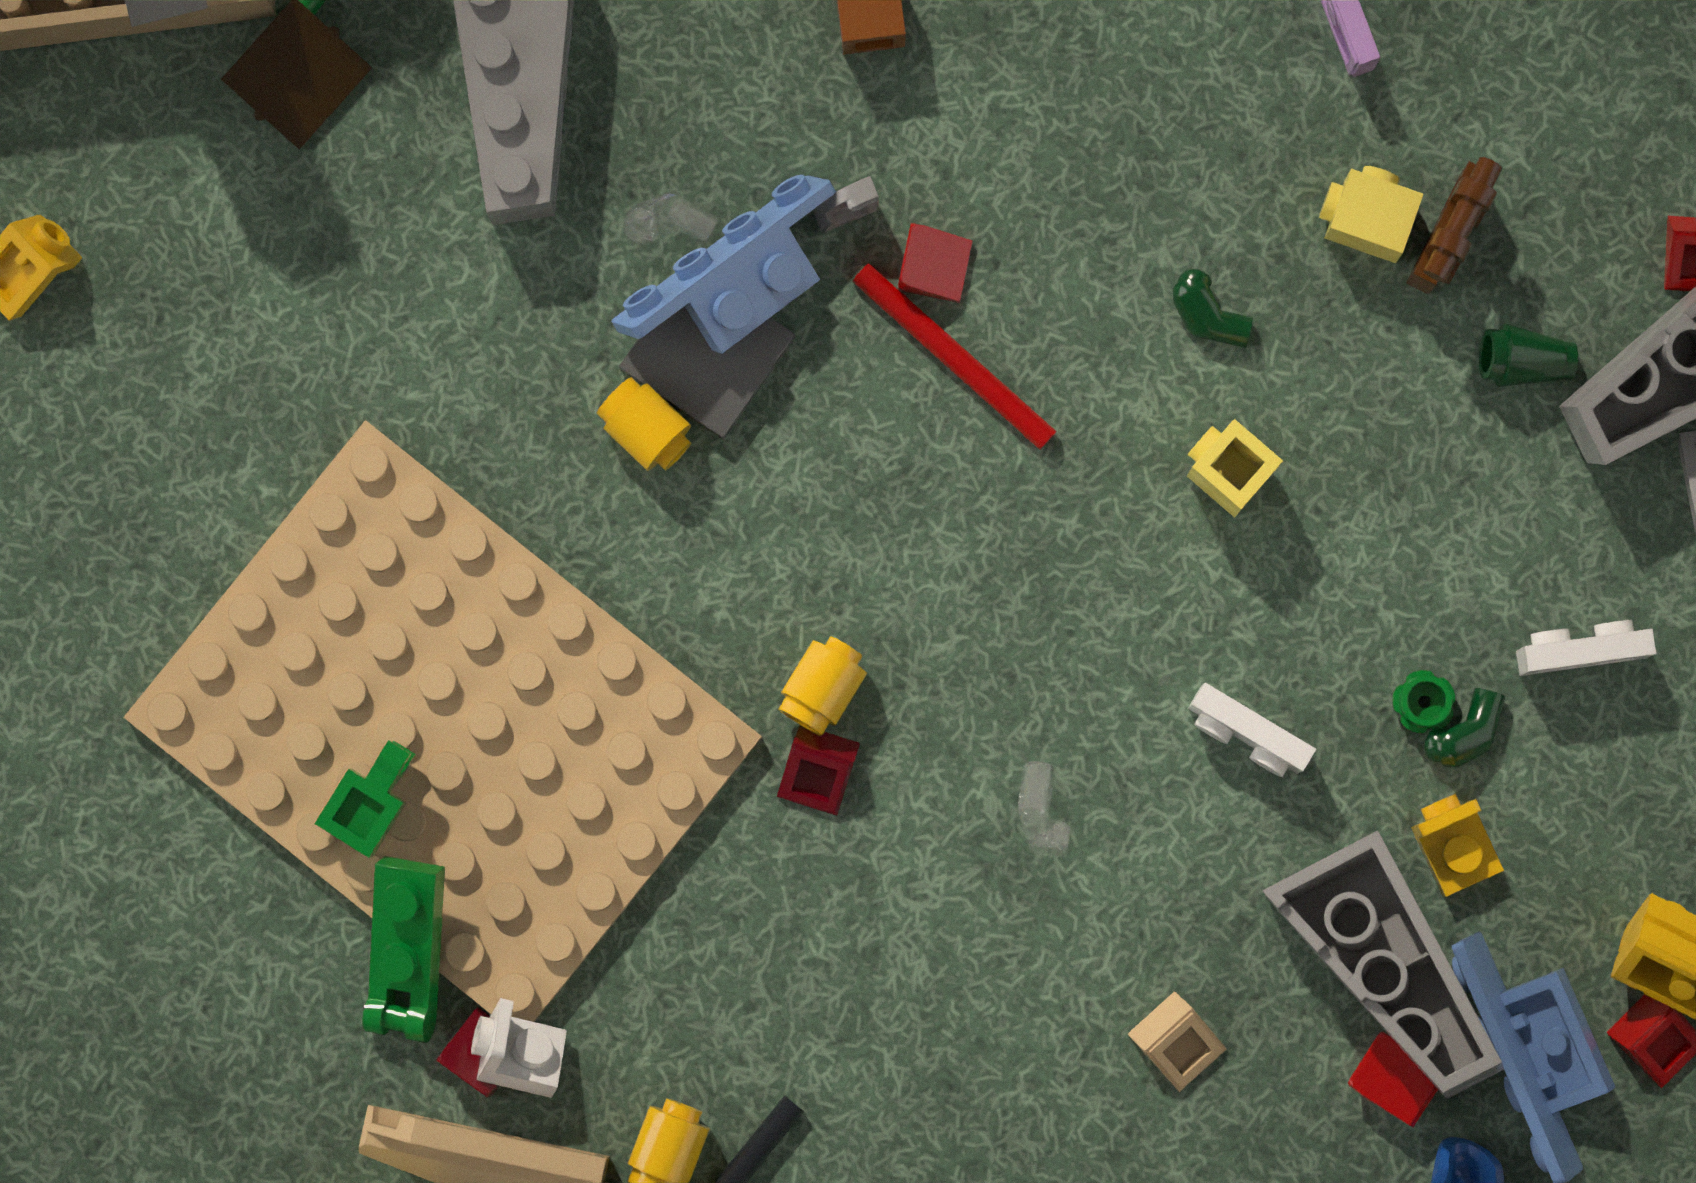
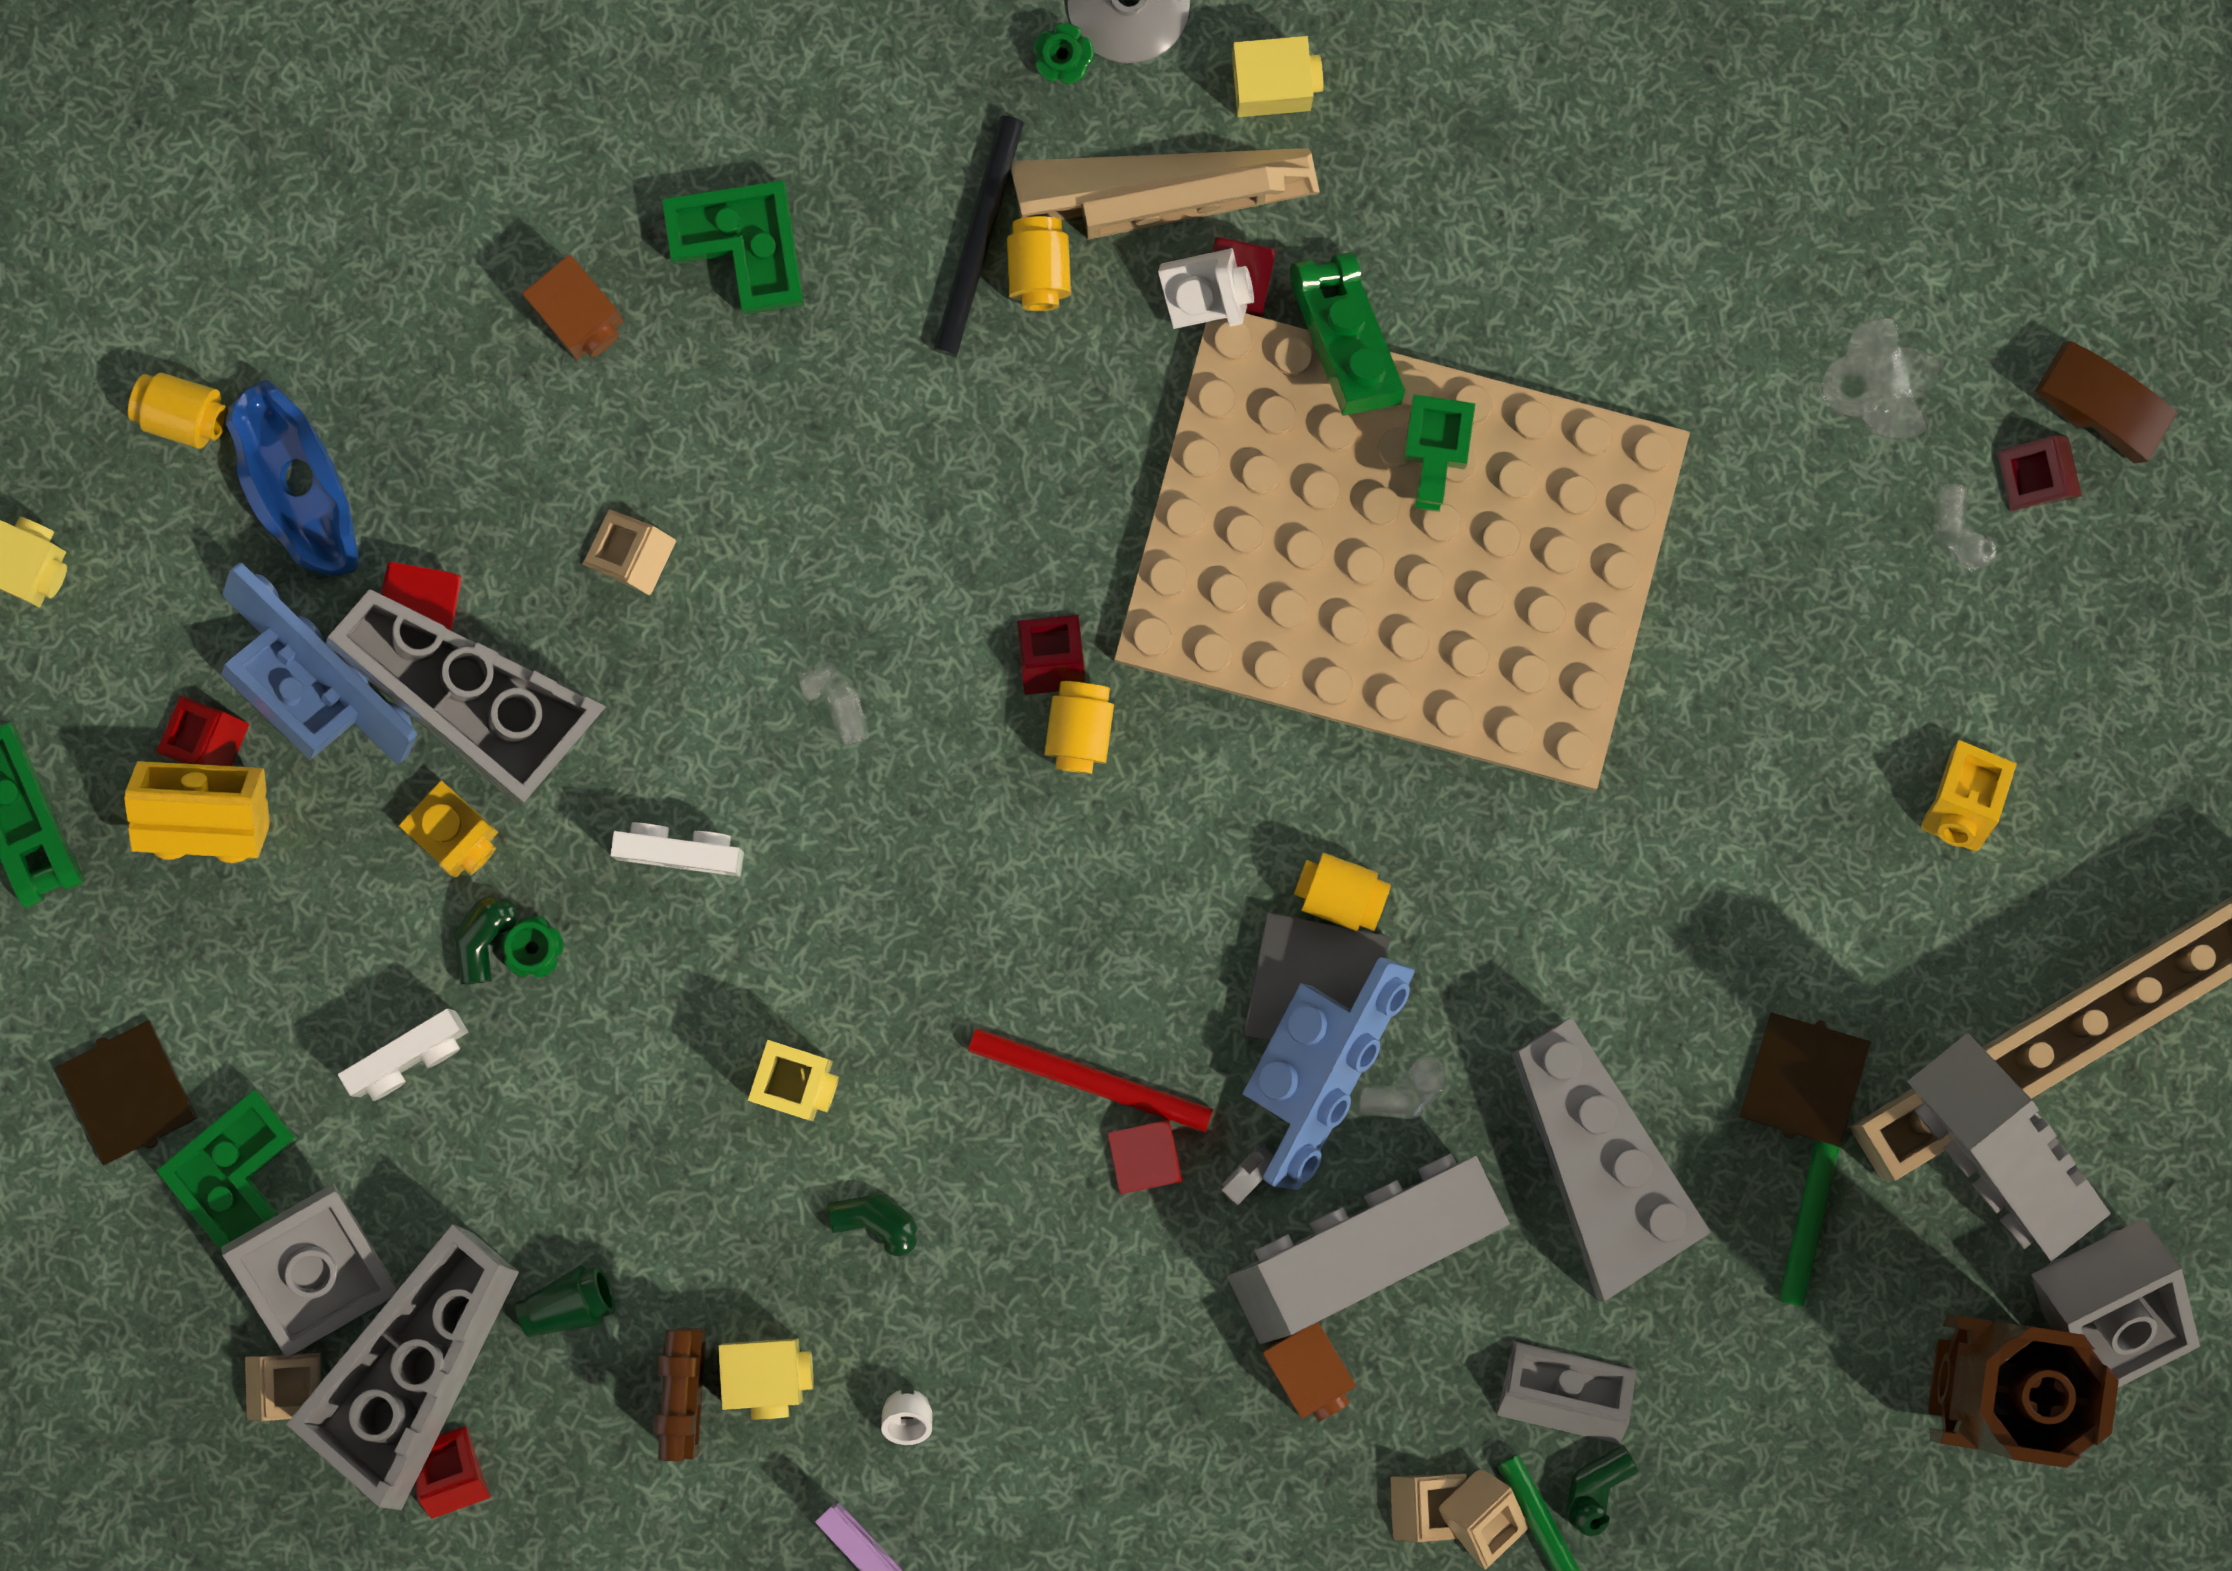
camera: 150 degrees right, 0 degrees up
(767, 87) = (1367, 1250): none -> light grey wedge
(1255, 121) = (906, 1430): none -> white hinge

